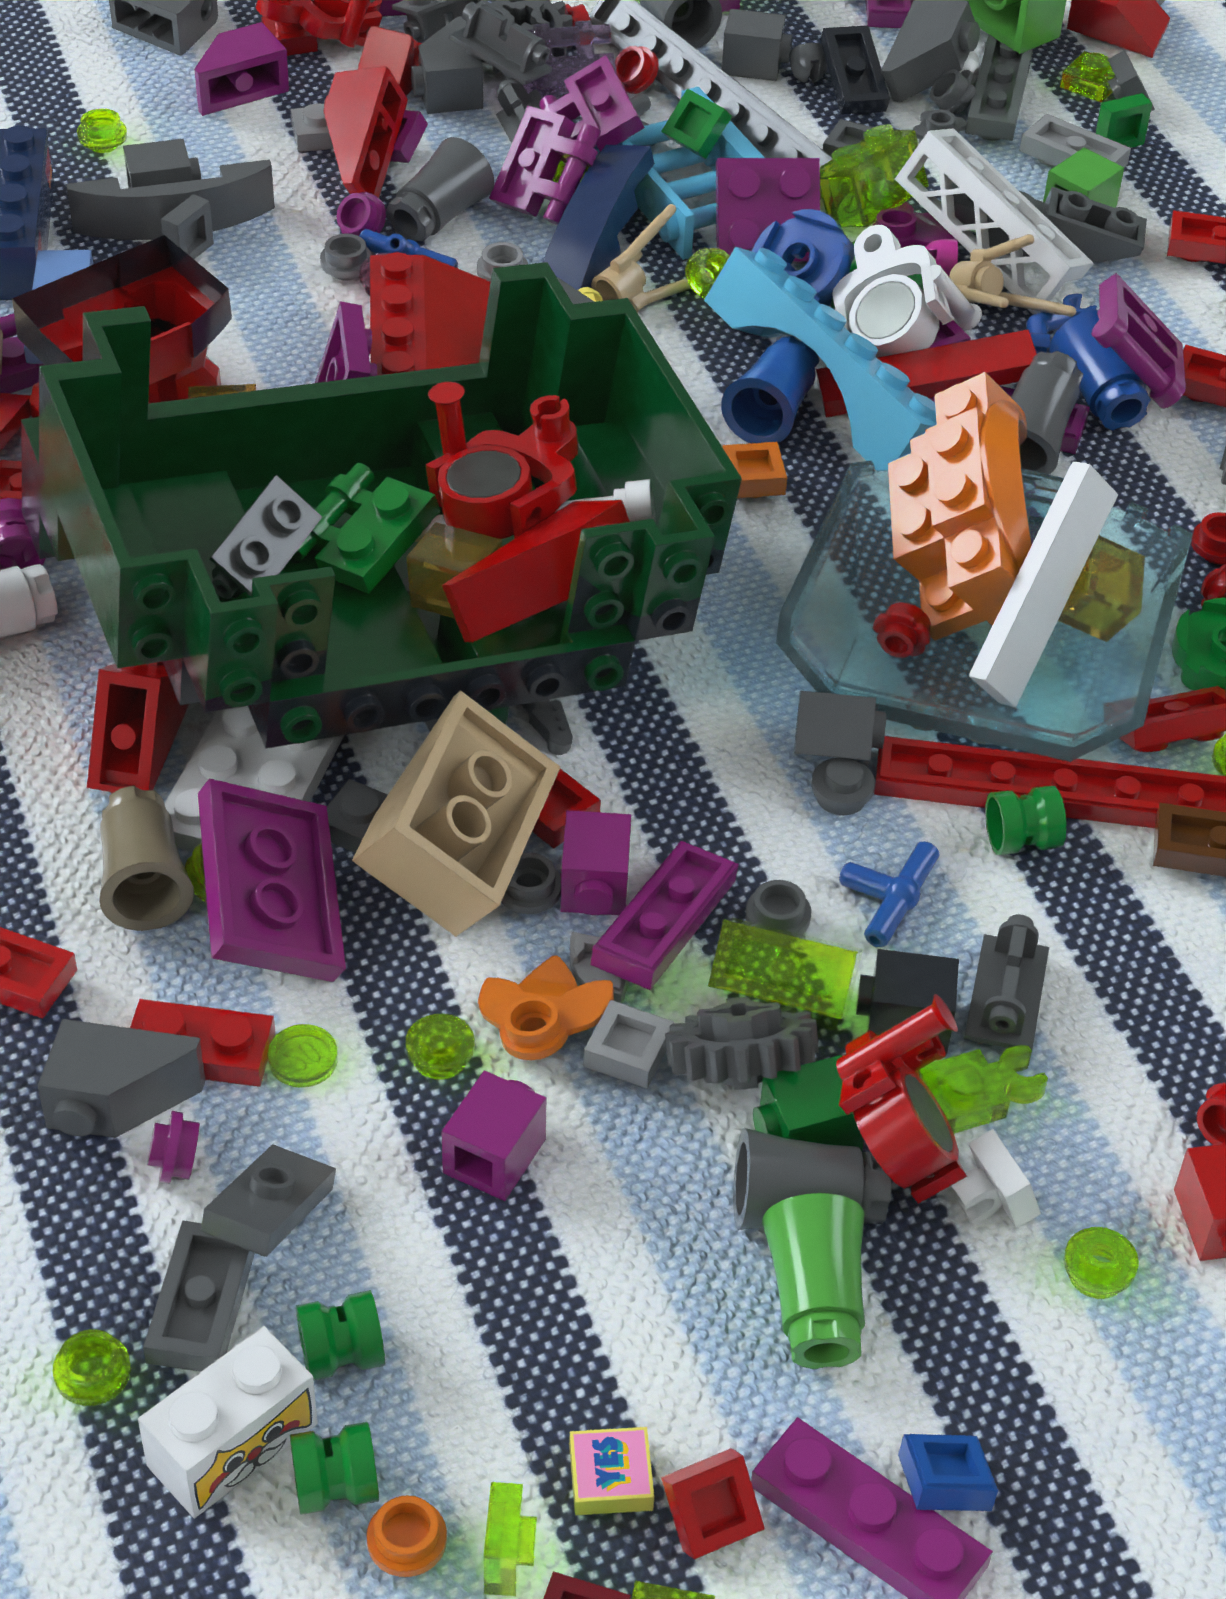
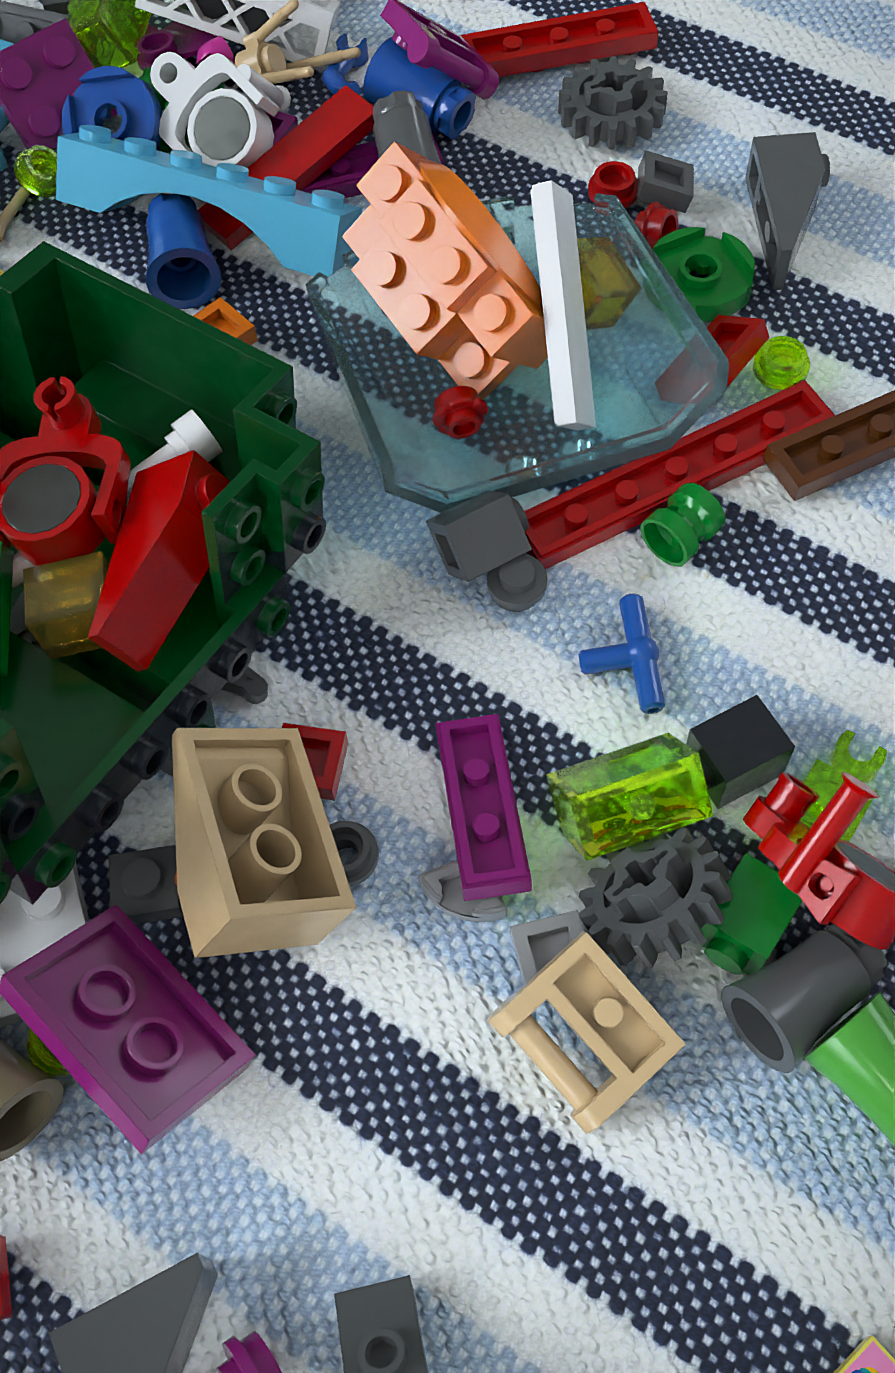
camera: 30 degrees left, 15 degrees up
(231, 1041) = (197, 1215): red plate -> none
(302, 1055) = (281, 1169): clear neon green piece -> none
(440, 1045) = (396, 1072): clear neon green plate -> none
(494, 1135) = (521, 1133): magenta brick -> none
(542, 1008) = (448, 961): orange plate -> none
(595, 863) = (389, 796): magenta brick -> none
(627, 1089) = (606, 1016): none -> tan plate
(779, 906) = (563, 737): dark grey plate -> none
(1008, 985) = (788, 685): dark grey hinge -> none

